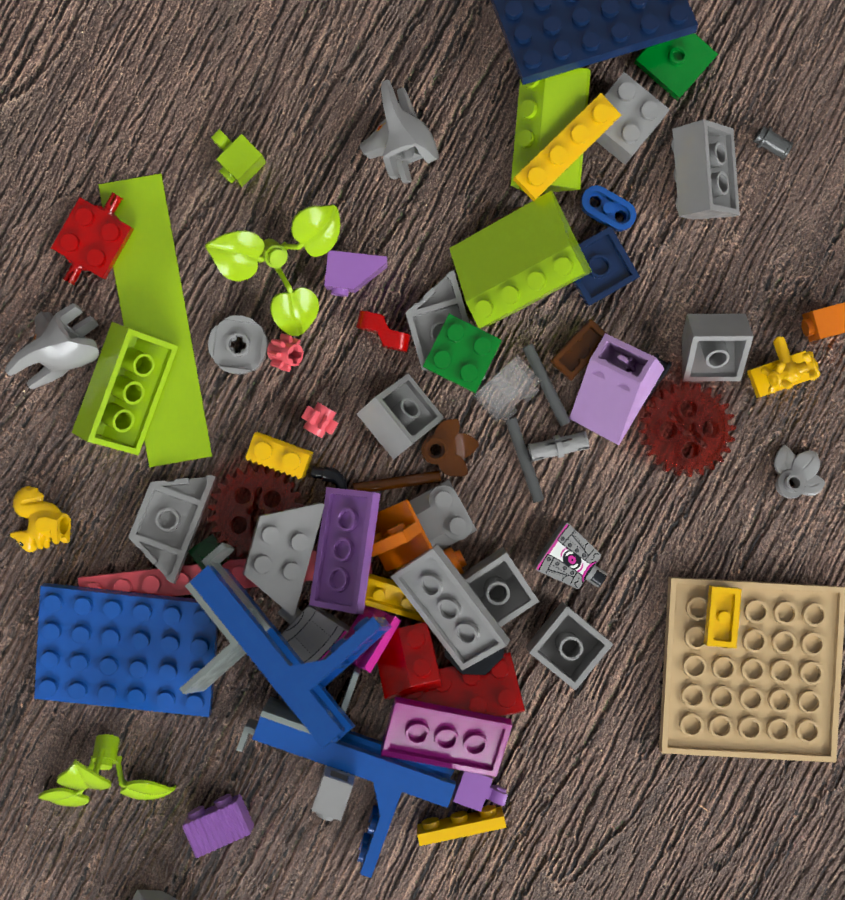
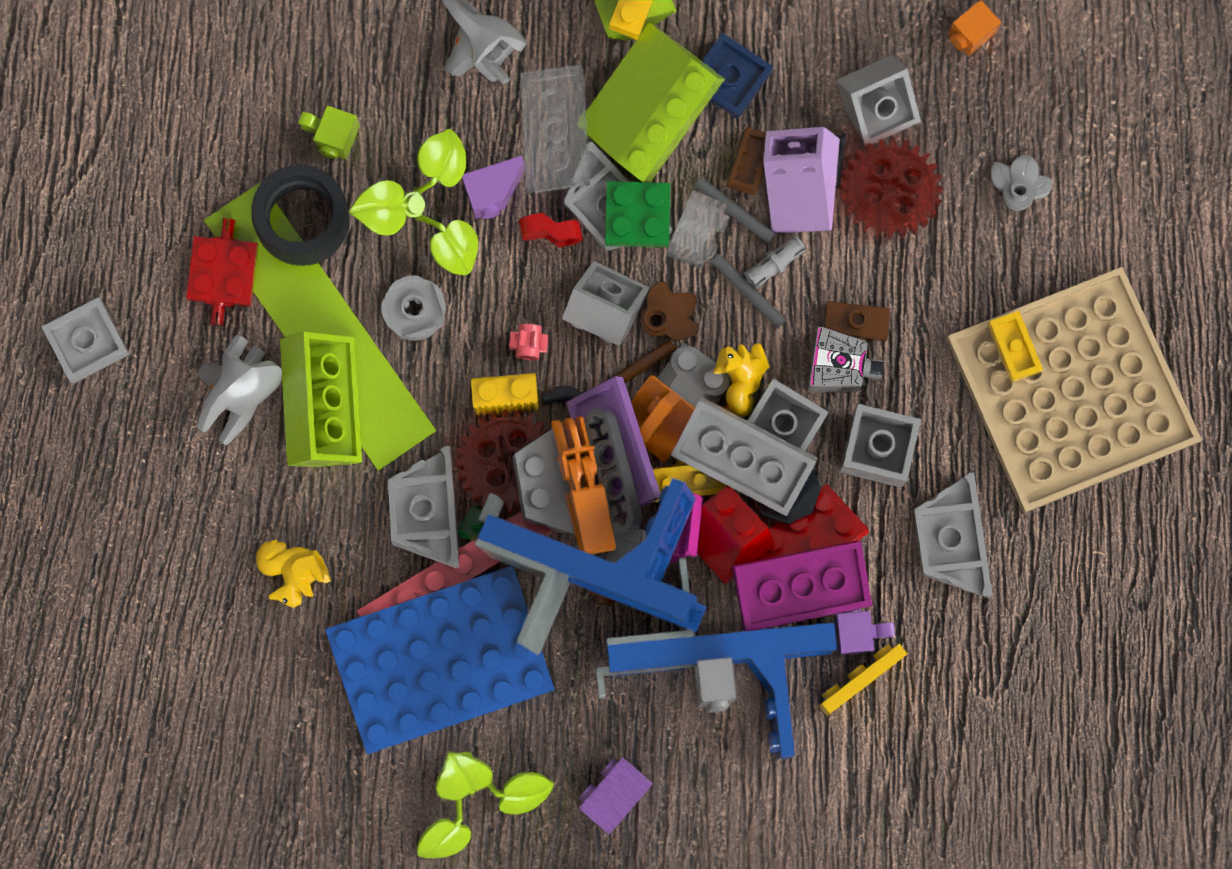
camera: 30 degrees left, 10 degrees down
(151, 194) = (292, 179): none -> black tyre
(285, 352) = (464, 292): coral gear -> none
(298, 588) = (588, 504): none -> orange arm
(338, 571) = (617, 468): none -> dark grey beam
(428, 244) = (555, 129): none -> clear tile
(486, 533) = (745, 373): none -> yellow animal
(591, 744) = (953, 538): none -> light grey wing
(602, 527) = (858, 320): none -> reddish brown plate
(608, 206) = (712, 16): blue plate -> none
(783, 372) = (957, 93): yellow piece -> none

